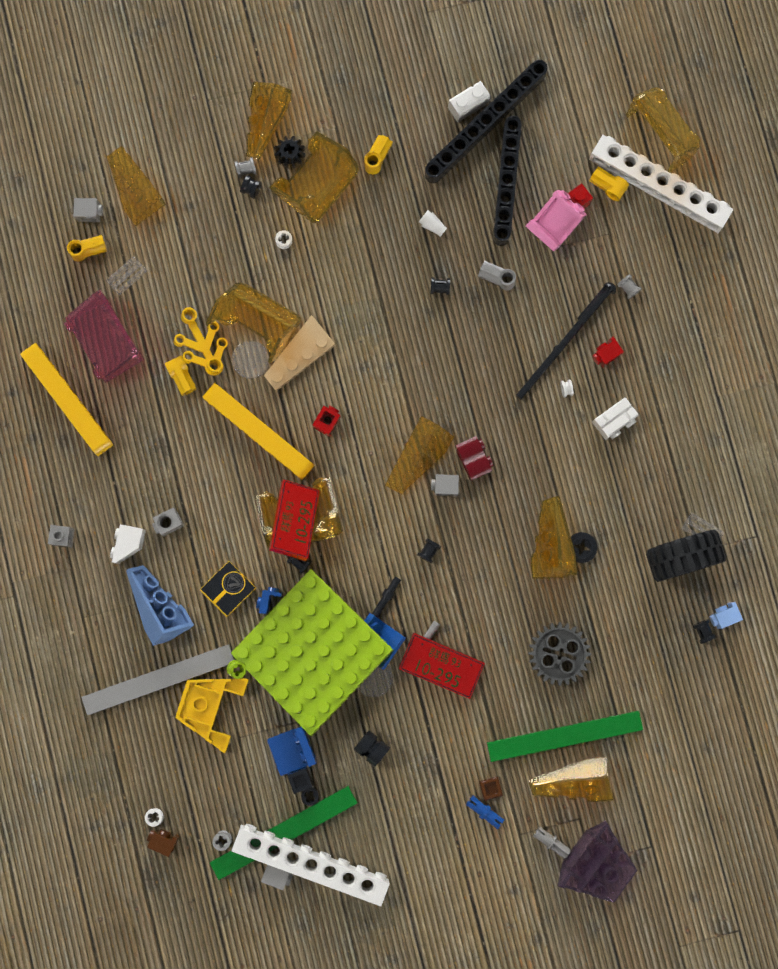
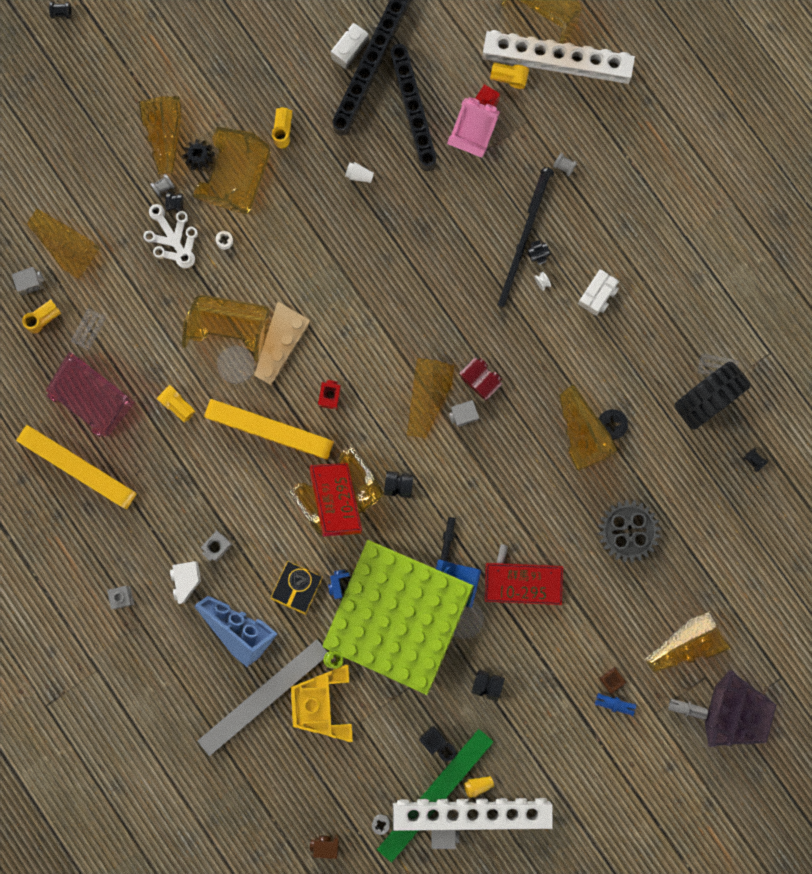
camera: 15 degrees left, 0 degrees up
(153, 811) = (305, 822): white bush -> none
(201, 345) = (184, 368): yellow plant -> none
(236, 220) = (173, 238): none -> white plant
(292, 750) = (414, 716): blue bracket -> none
(299, 564) = (356, 539): black bush -> none
(327, 839) = (478, 786): none -> yellow cone
(359, 528) = (398, 484): none -> black wheel
(429, 550) = (471, 481): black bush -> none
(440, 286) = (388, 229): black bush -> none
(495, 275) = (435, 199): light grey piece -> none
(564, 736) = (662, 606): green tile -> none
(573, 360) = (538, 252): none -> black gear
(607, 353) = (568, 233): red brick -> none
(726, 616) = (769, 438): light blue brick -> none

